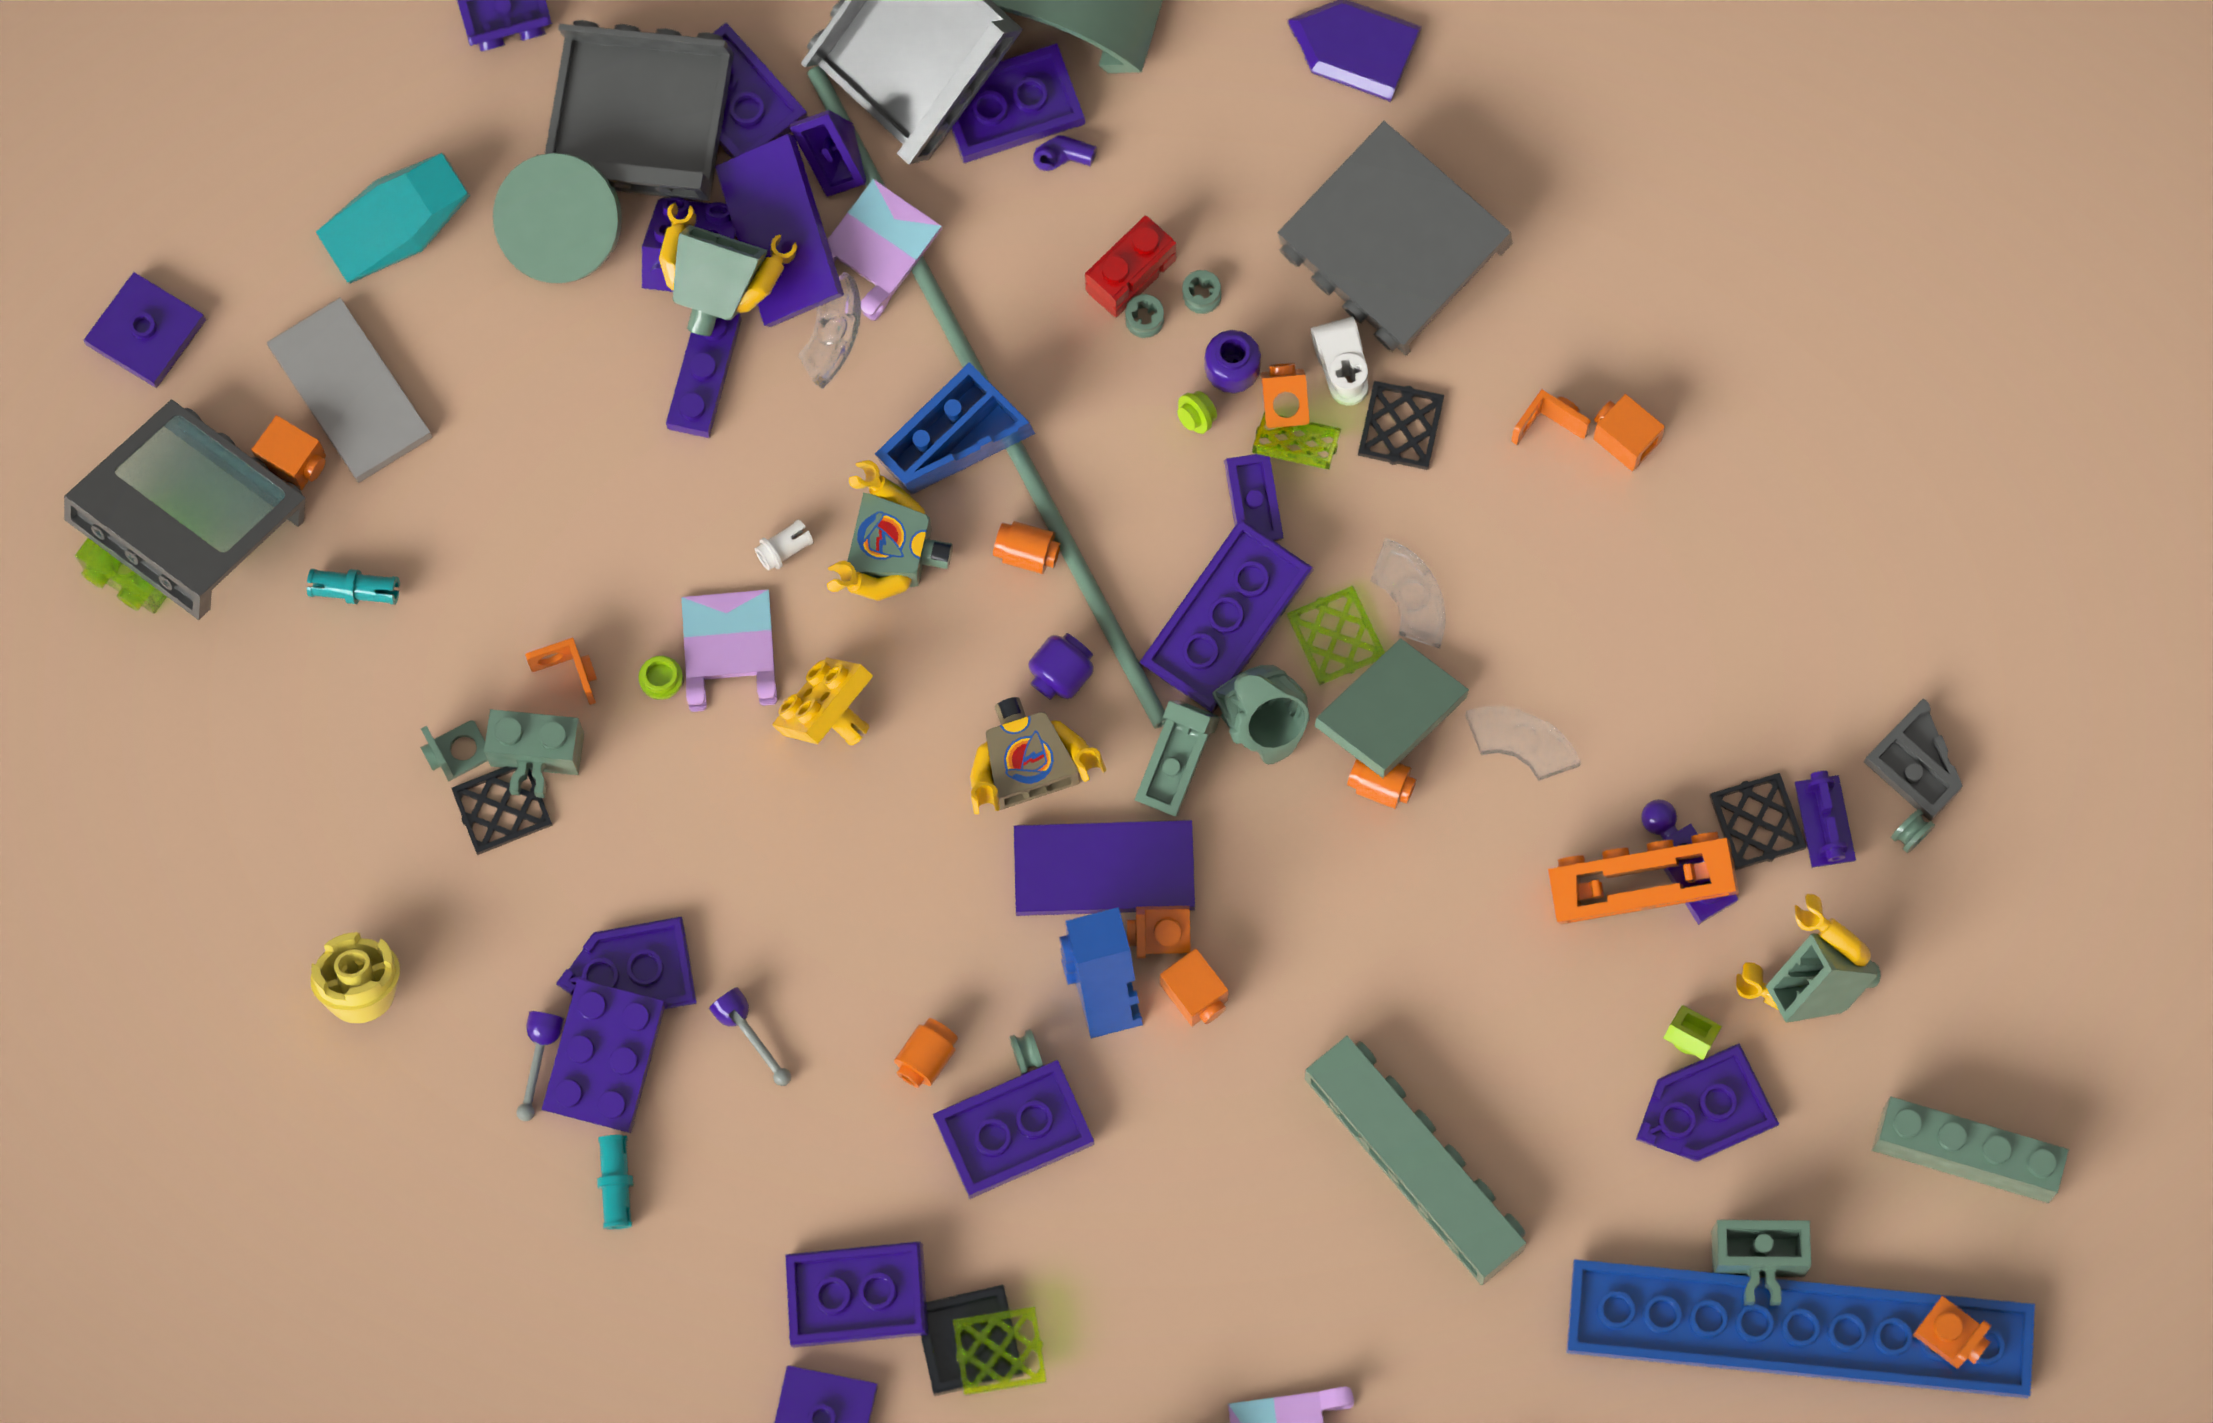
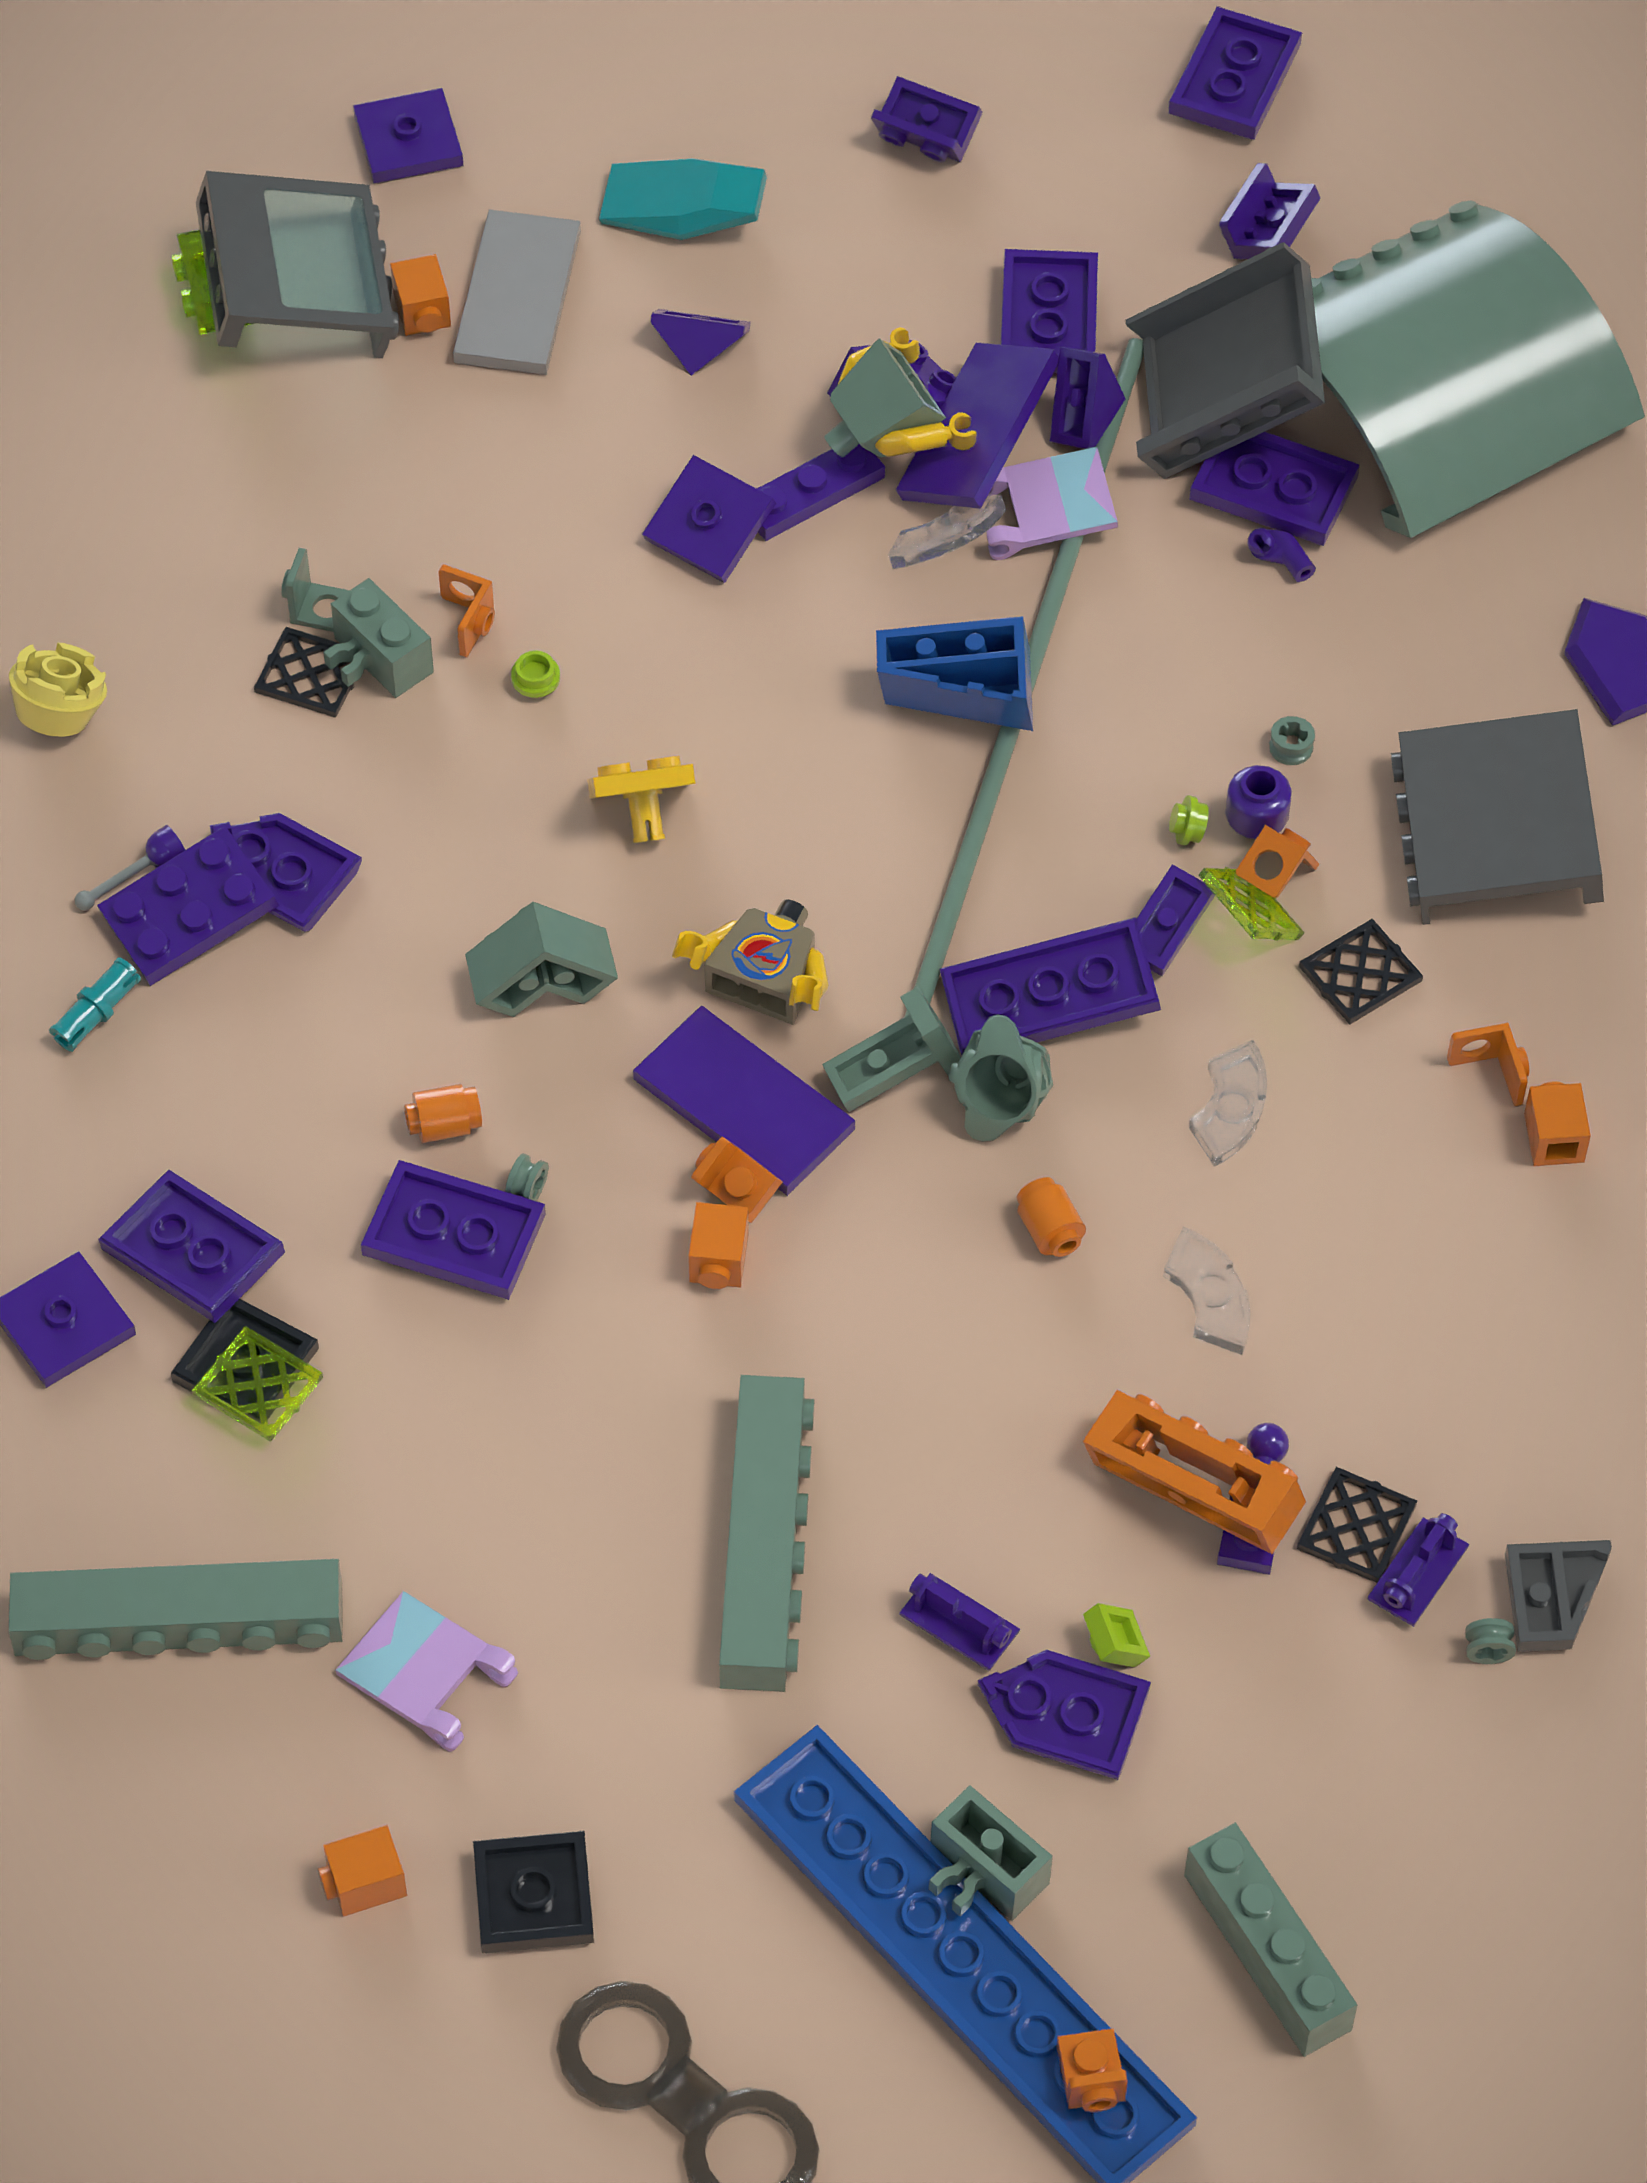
camera: 40 degrees right, 15 degrees down
(353, 586) = (367, 425): teal pin -> none
(510, 318) = (697, 337): none -> dark purple slope
(557, 218) = (807, 284): sand green tile -> none
(642, 106) = (956, 260): dark grey panel -> none
(663, 457) = (709, 518): none -> dark purple plate
(727, 639) = (619, 691): lavender flag -> none
(732, 1011) = (324, 955): hinge -> none
(782, 546) = (737, 656): white pin -> none
(884, 890) = (540, 954): none -> sand green brick
(888, 541) = (822, 717): torso -> none
(1026, 547) = (935, 808): orange brick -> none
(1061, 666) = (867, 916): dark purple head -> none
(1101, 965) = (648, 1152): blue wedge -> none
(1130, 266) = (1247, 670): red brick -> none
(1157, 319) = (1214, 711): sand green bush -> none
(1307, 647) = (1145, 1052): clear neon green window -> none
(1342, 355) = (1358, 878): white piece -> none
(1391, 708) = (1116, 1165): sand green tile -> none
(1587, 1108) = (958, 1620): none -> dark purple hinge
(1820, 976) = (1280, 1672): sand green torso -> none

